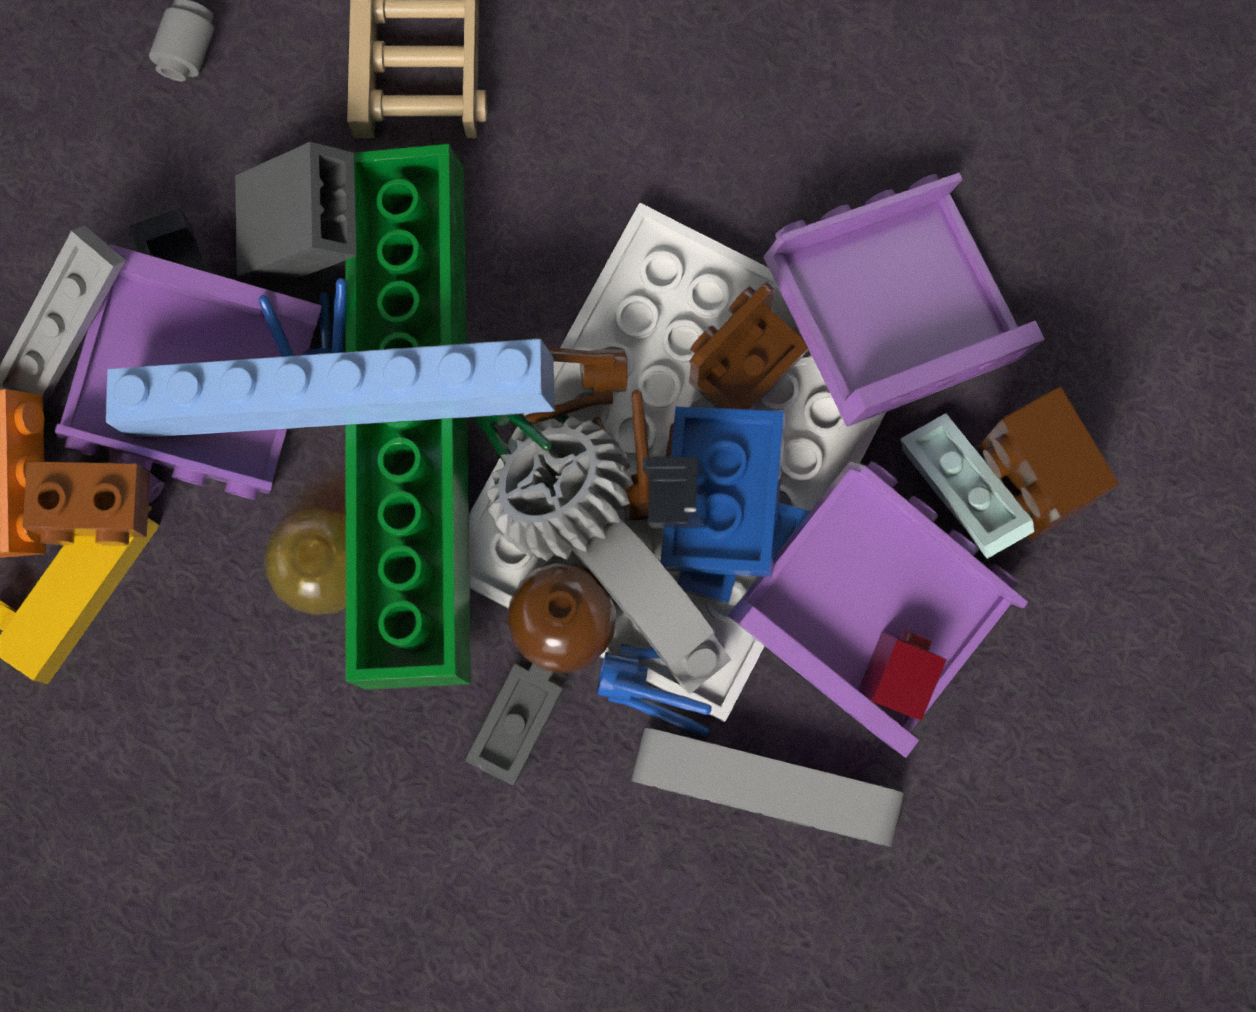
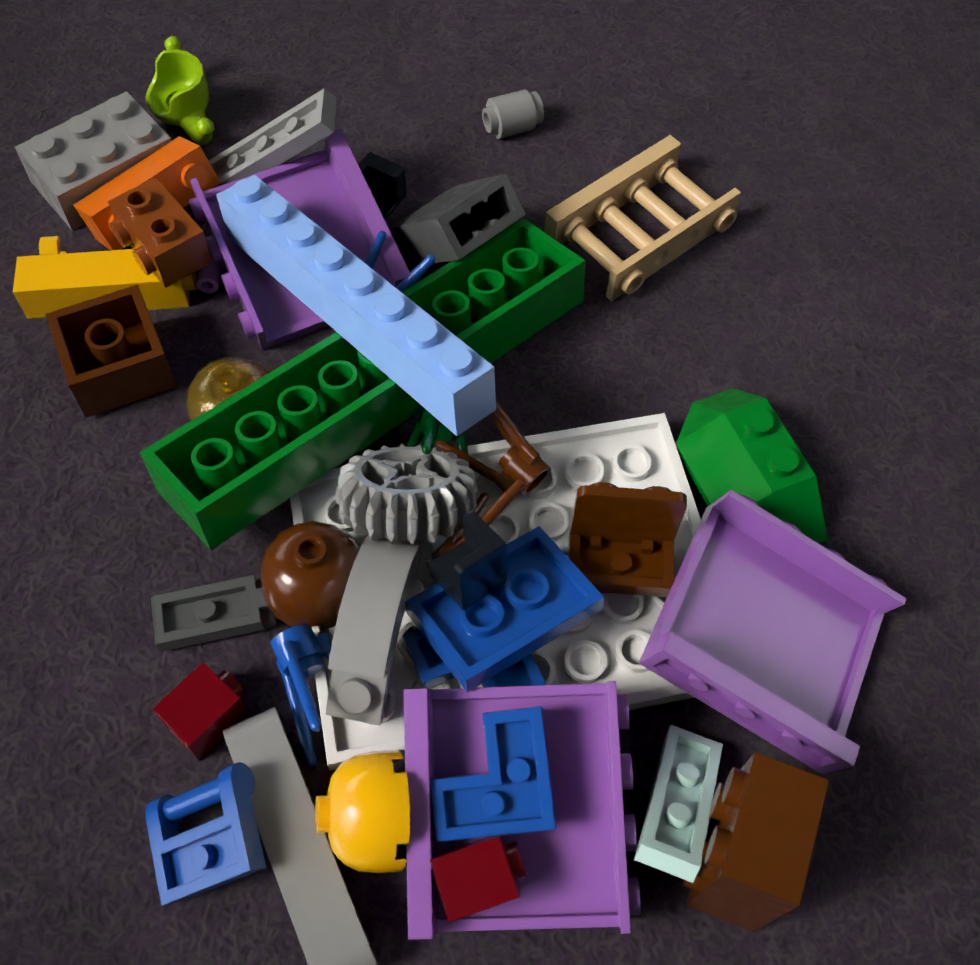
camera: 45 degrees right, 20 degrees down
(176, 631) = (110, 351): none -> reddish brown brick
(601, 783) = (202, 708): none -> dark red brick
(726, 857) = (210, 852): none -> blue plate
(740, 177) = (744, 447): none -> green wedge
(794, 717) = (367, 812): none -> yellow cylinder
(871, 607) = (512, 794): none -> blue plate

